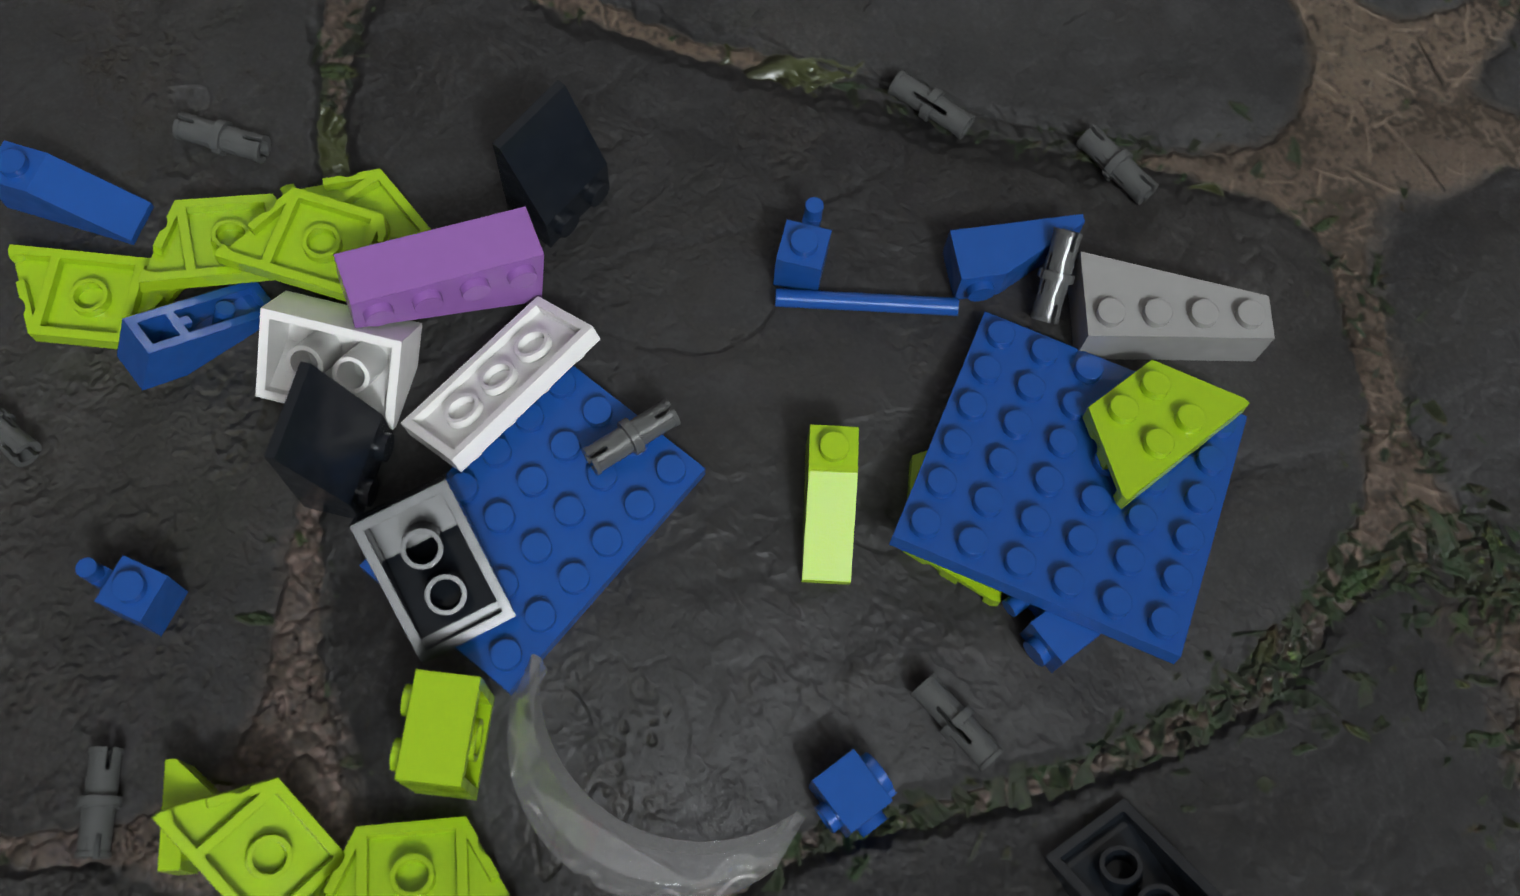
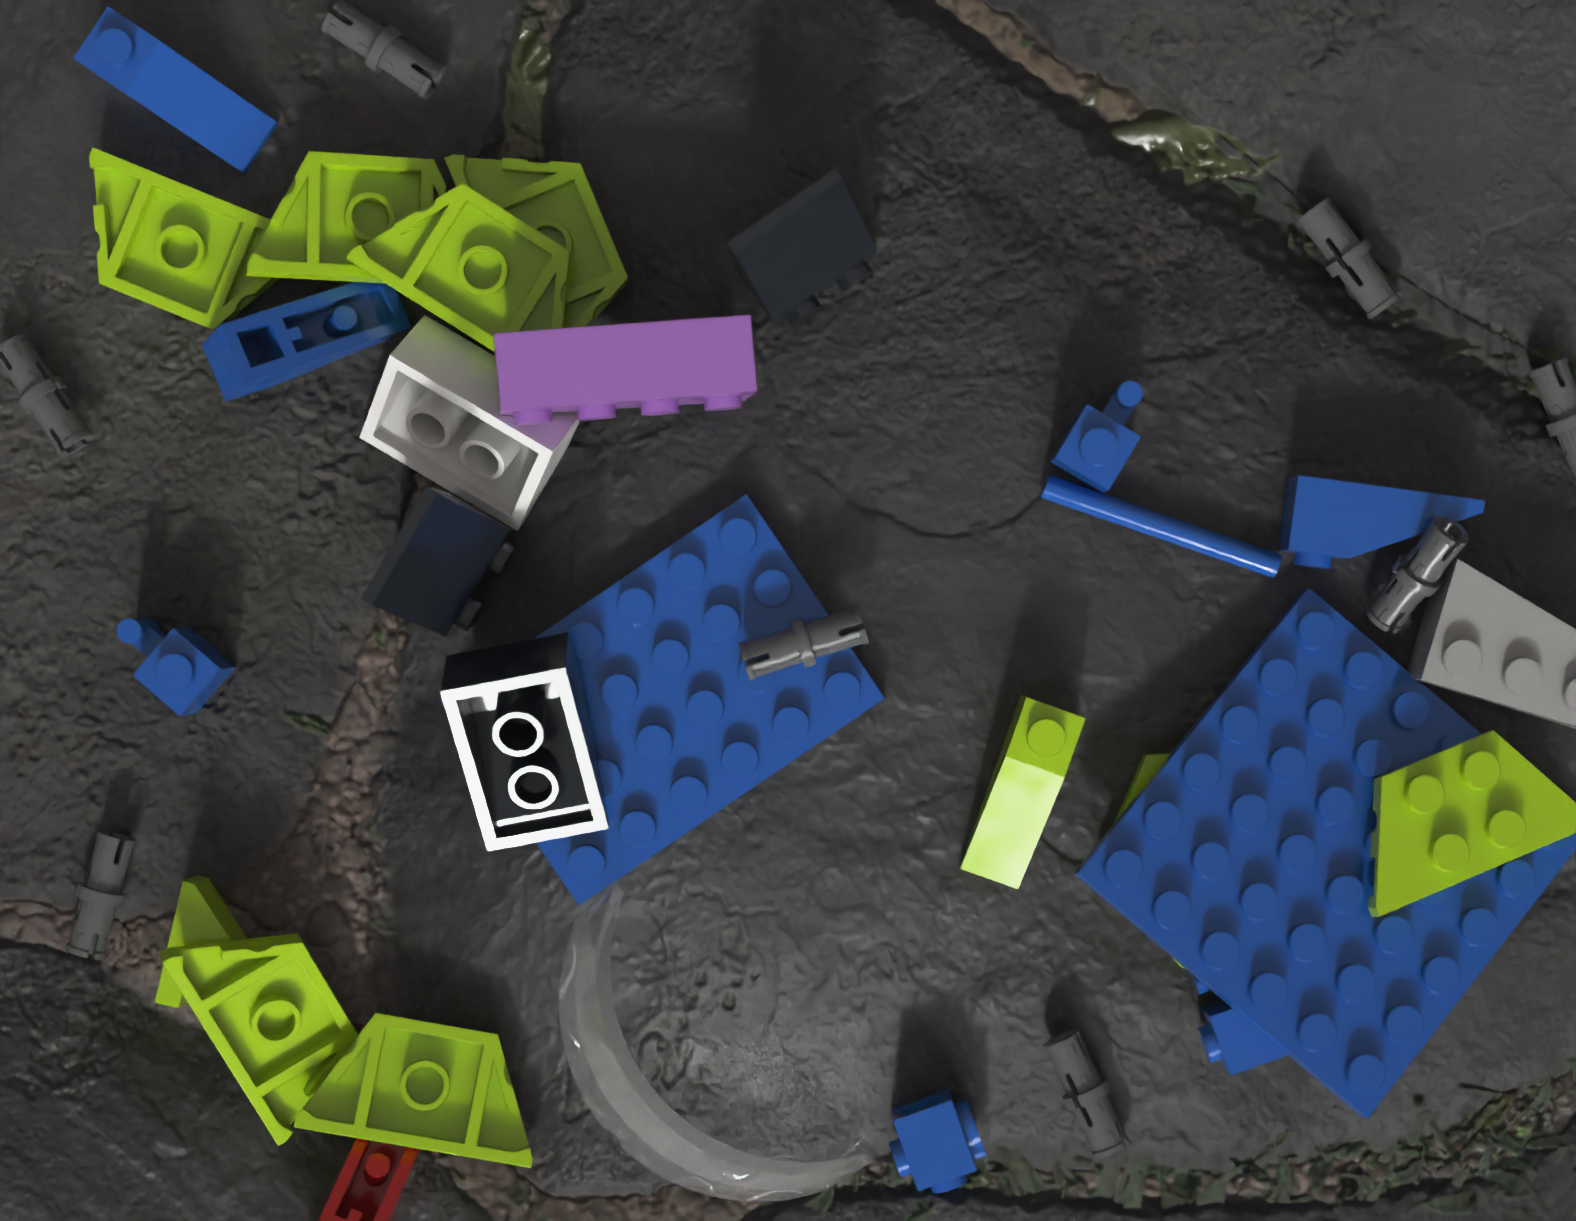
camera: 25 degrees right, 20 degrees up
(443, 734) = (494, 949): lime brick -> none
(500, 382) = (663, 518): white plate -> none

